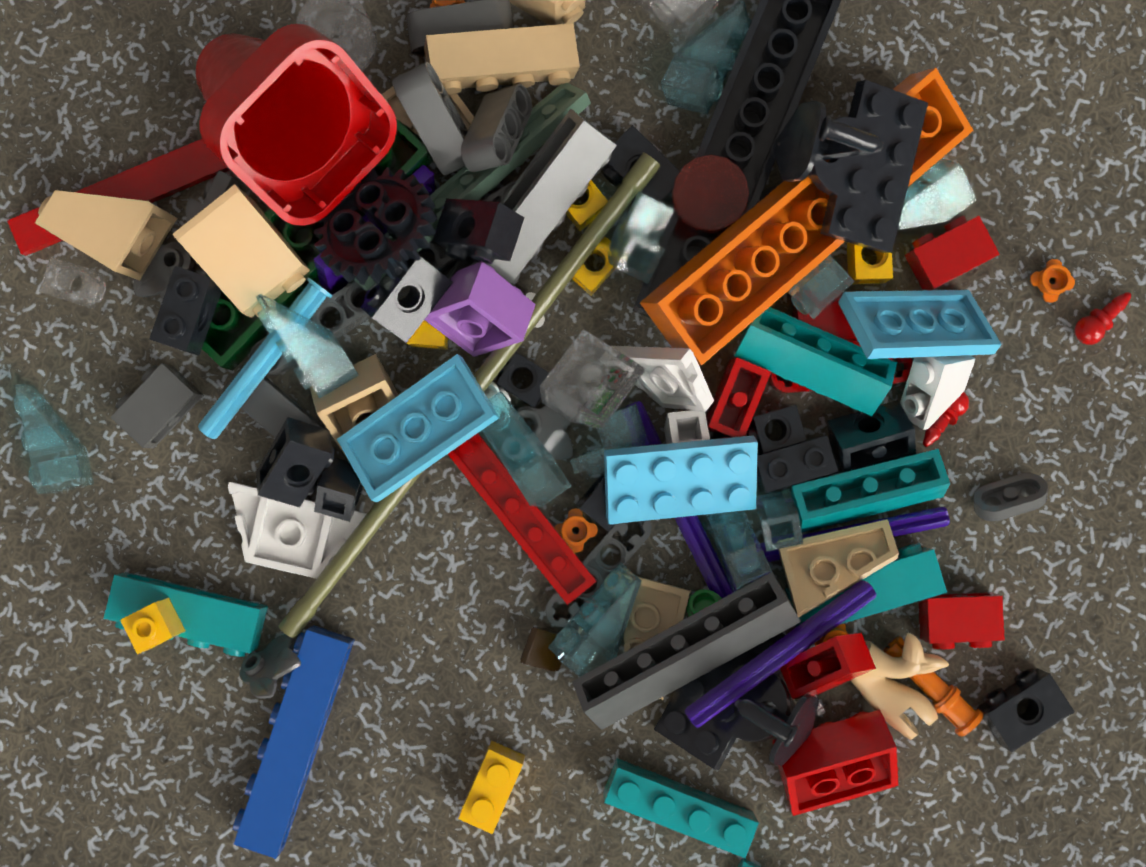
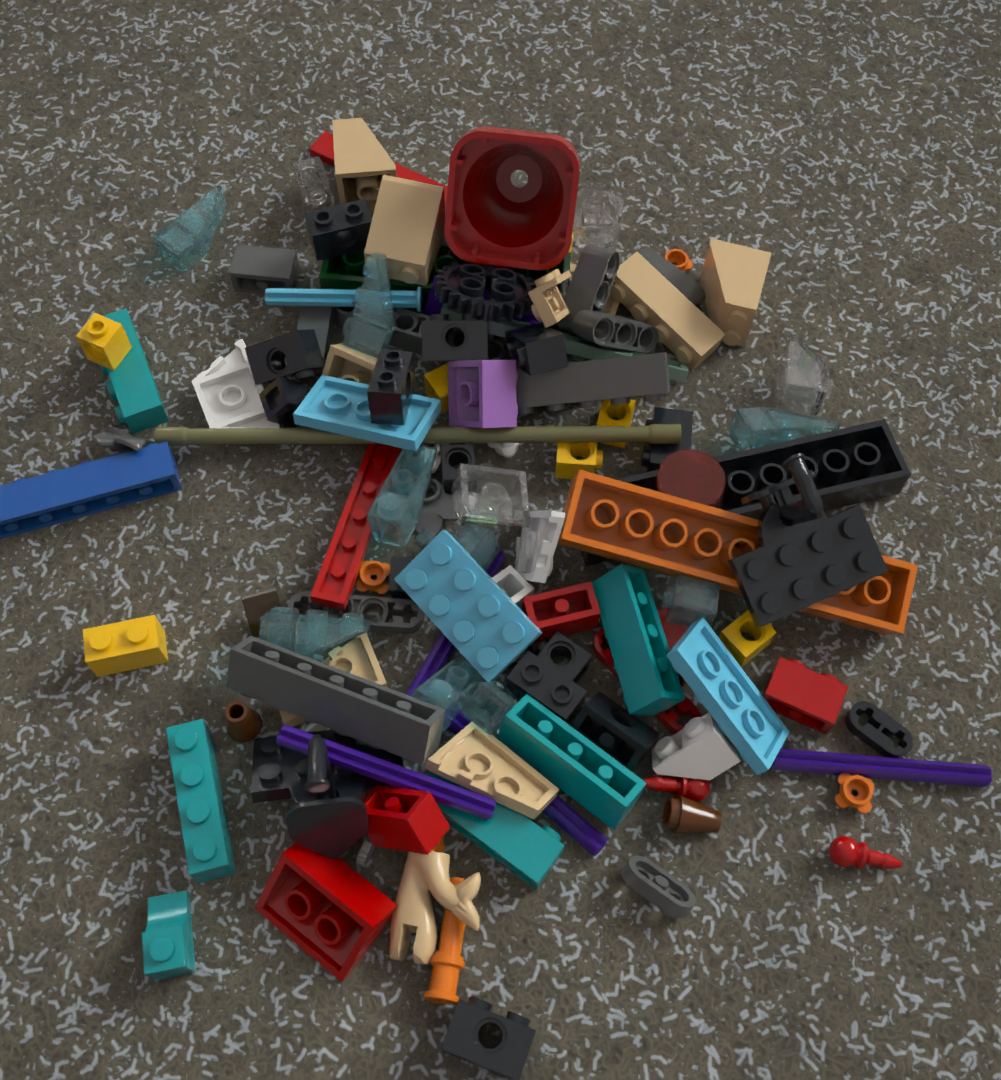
camera: 50 degrees right, 25 degrees down
(419, 394) = (391, 387): none -> black brick
(434, 173) = (547, 301): none -> tan bracket
(634, 721) = (242, 721): none -> reddish brown cone
(635, 242) = (622, 460): clear light blue brick -> none
(936, 196) = (829, 645): clear light blue slope -> none
(962, 618) = (525, 921): red brick -> none
(976, 428) = (690, 817): none -> reddish brown cone
(1019, 208) = (878, 730): none -> black beam
(1052, 238) = (883, 767): none -> dark purple axle

